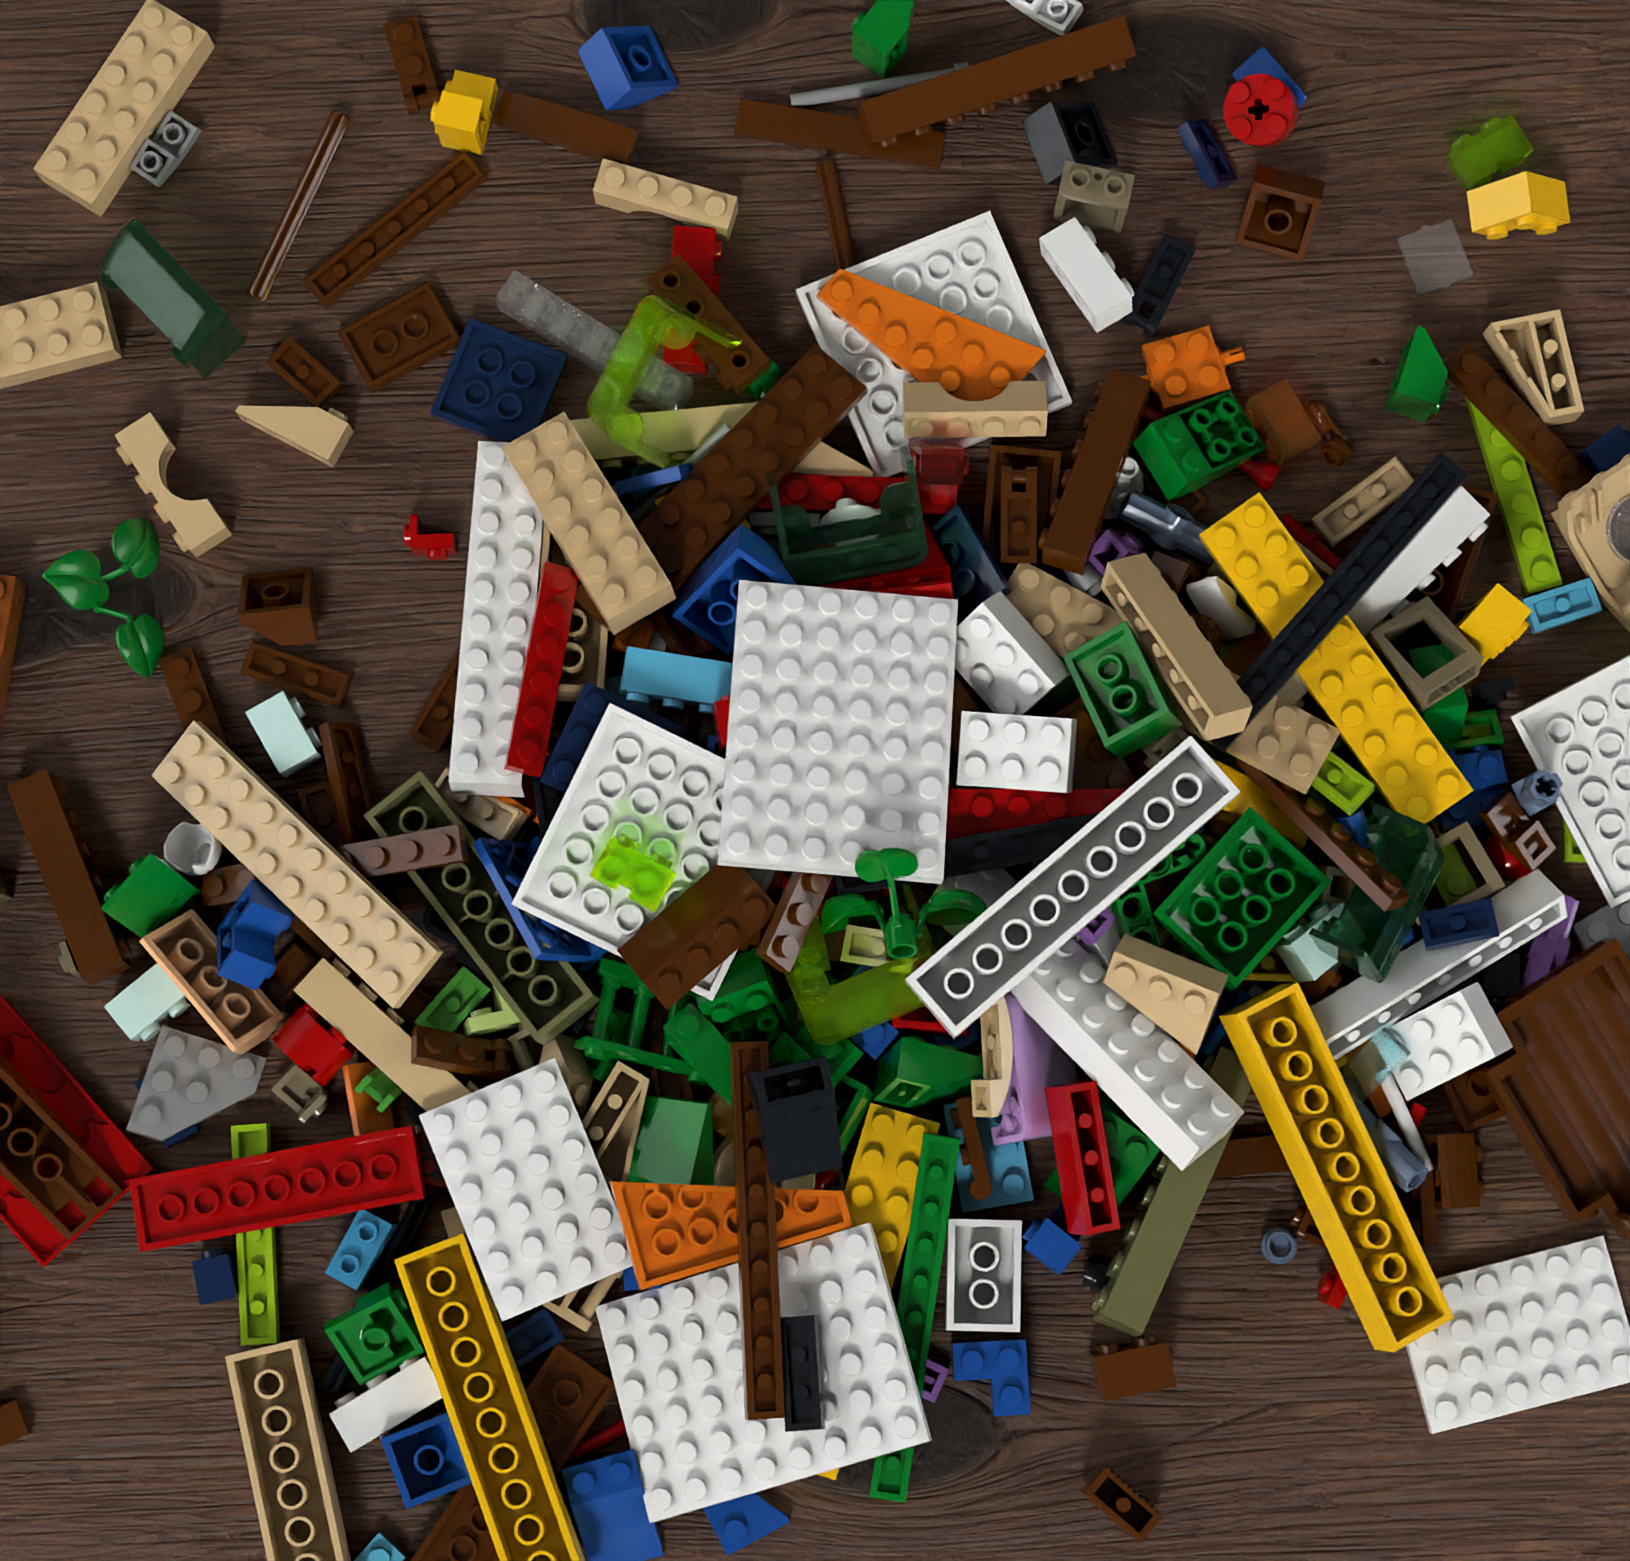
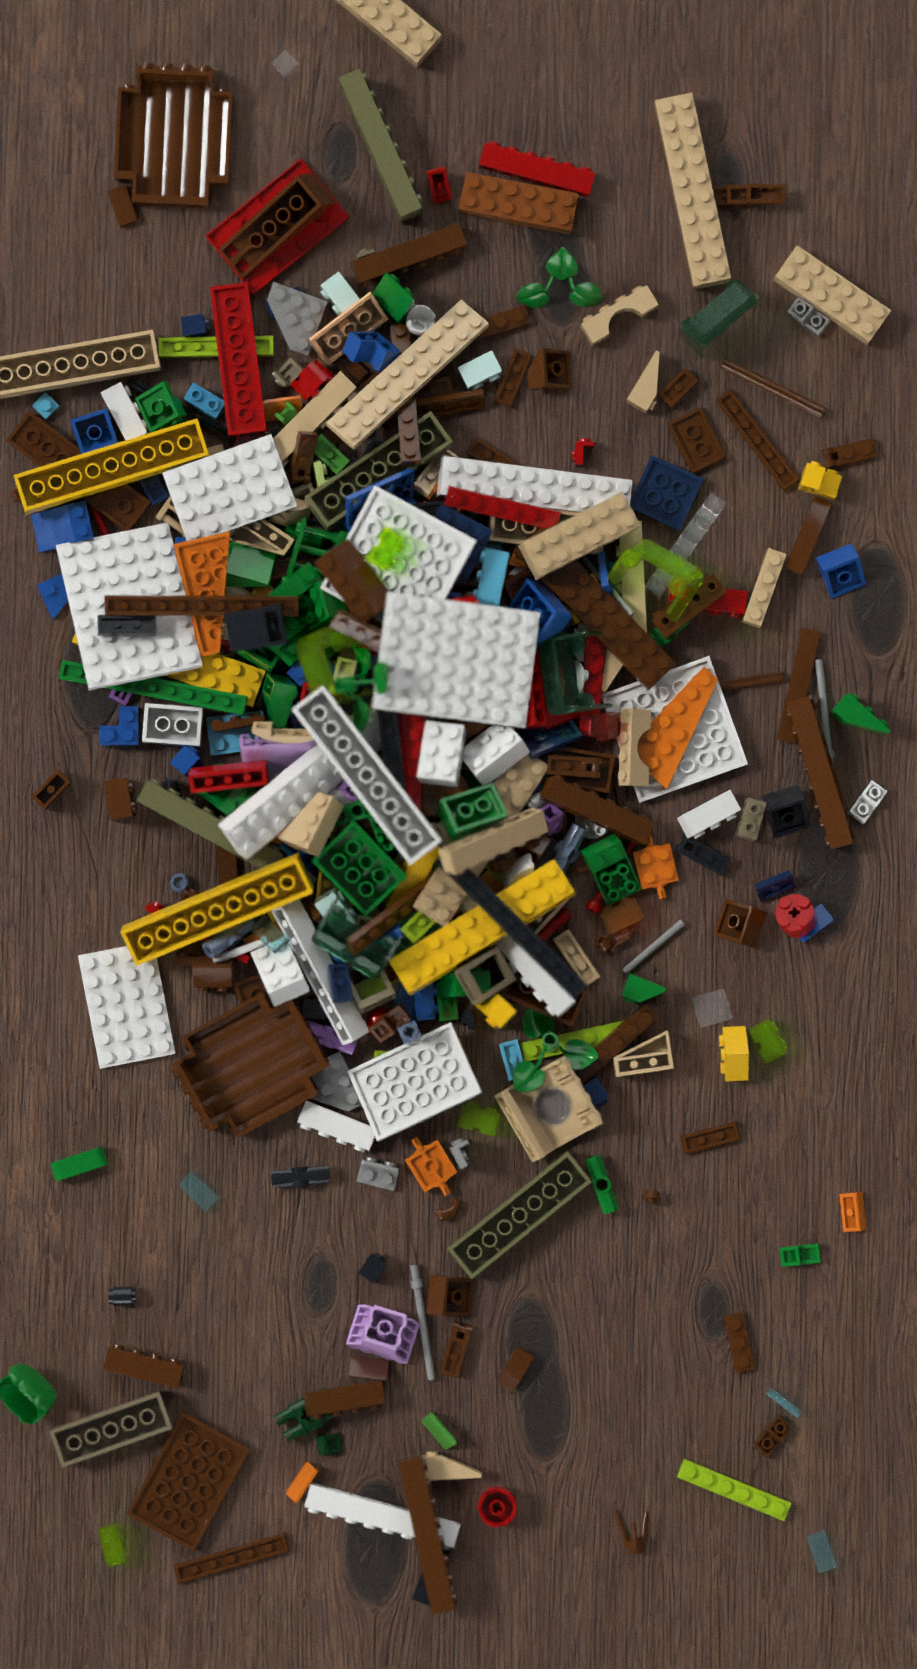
camera: 85 degrees right, 5 degrees up
(1332, 365) = (653, 947): none -> light grey bar
(1543, 483) = (535, 1024): none -> green plant

